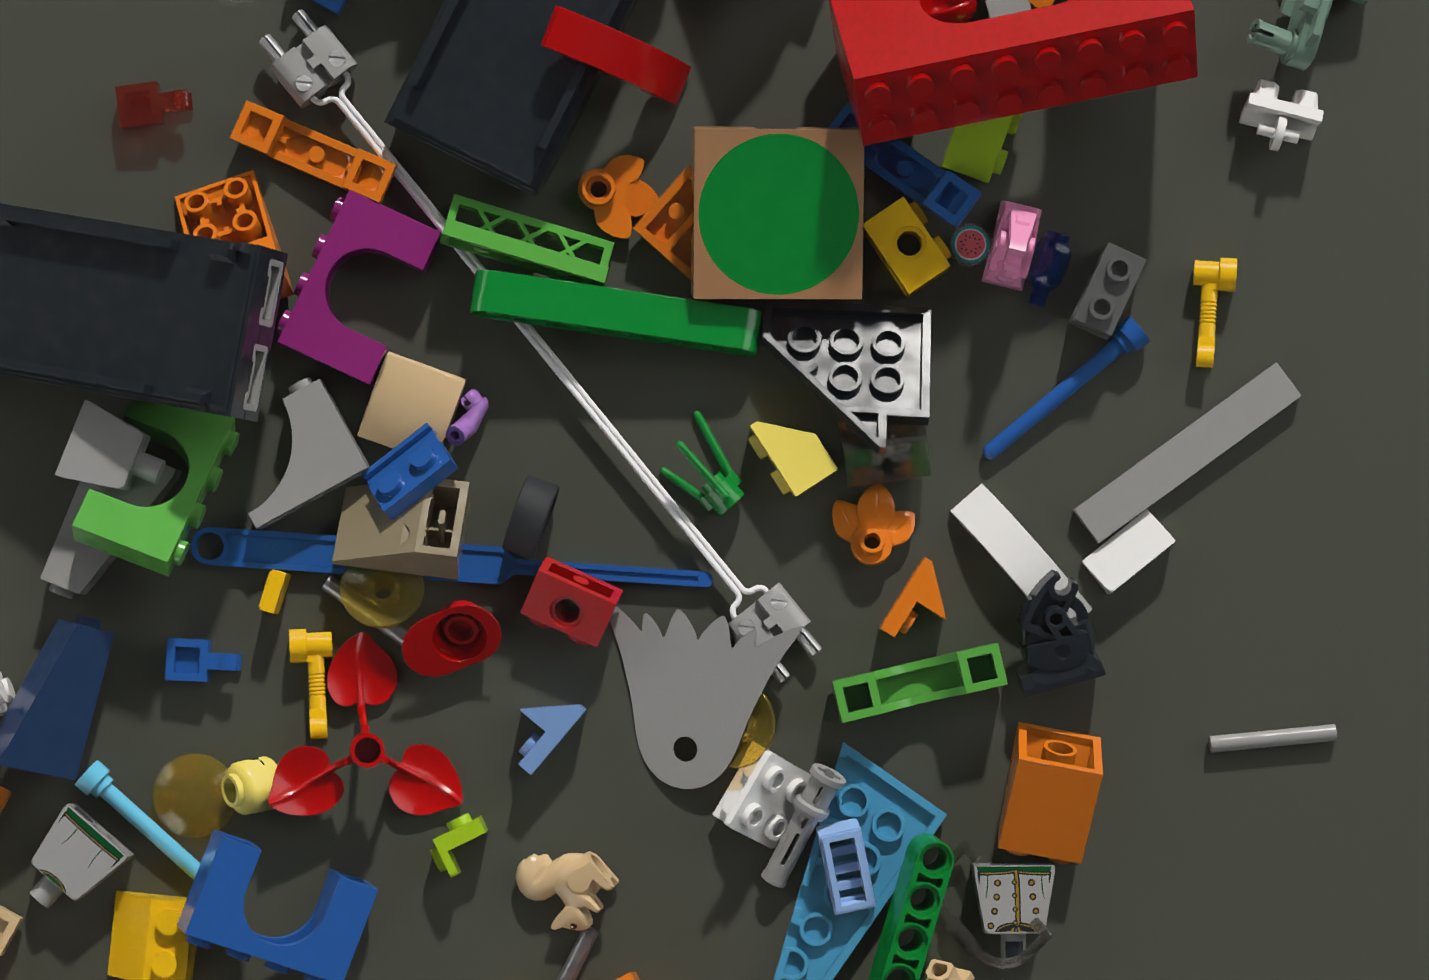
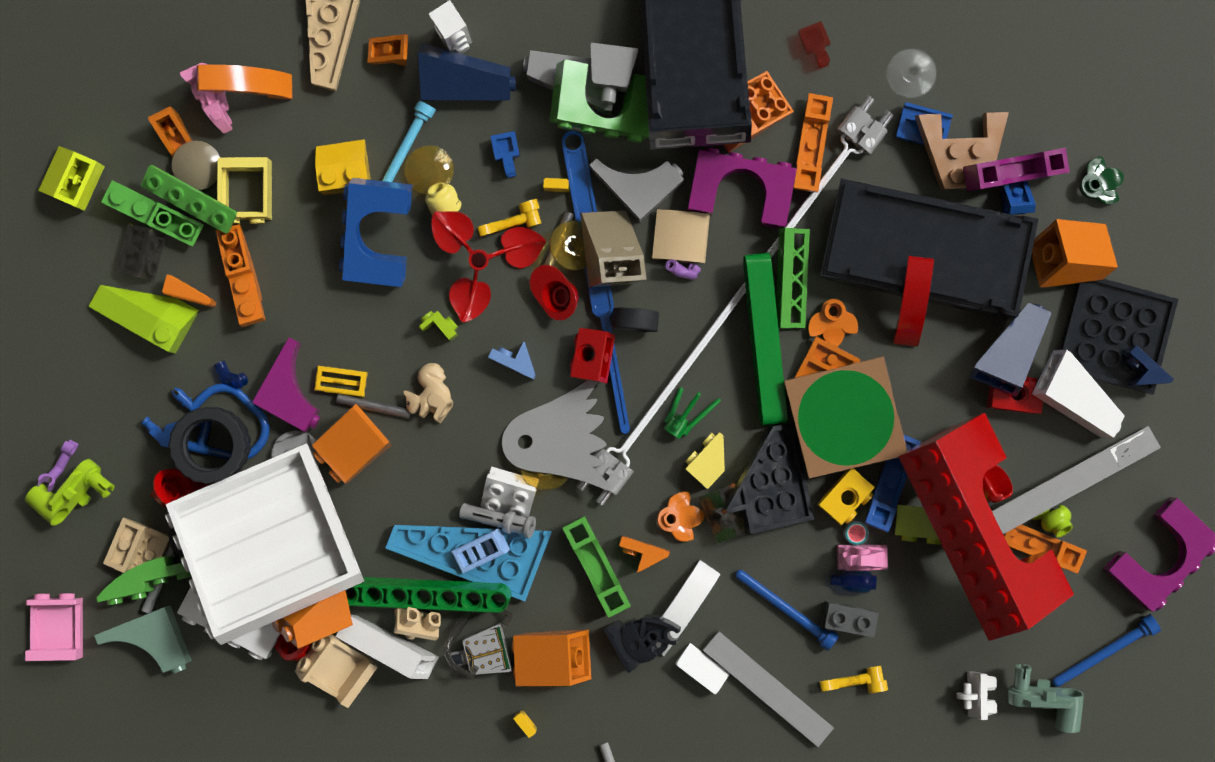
camera: 75 degrees right, 0 degrees up
(76, 856) = (378, 111): light grey torso -> none
(409, 471) = (644, 244): blue plate -> none
(1146, 863) = (525, 723): none -> yellow tile

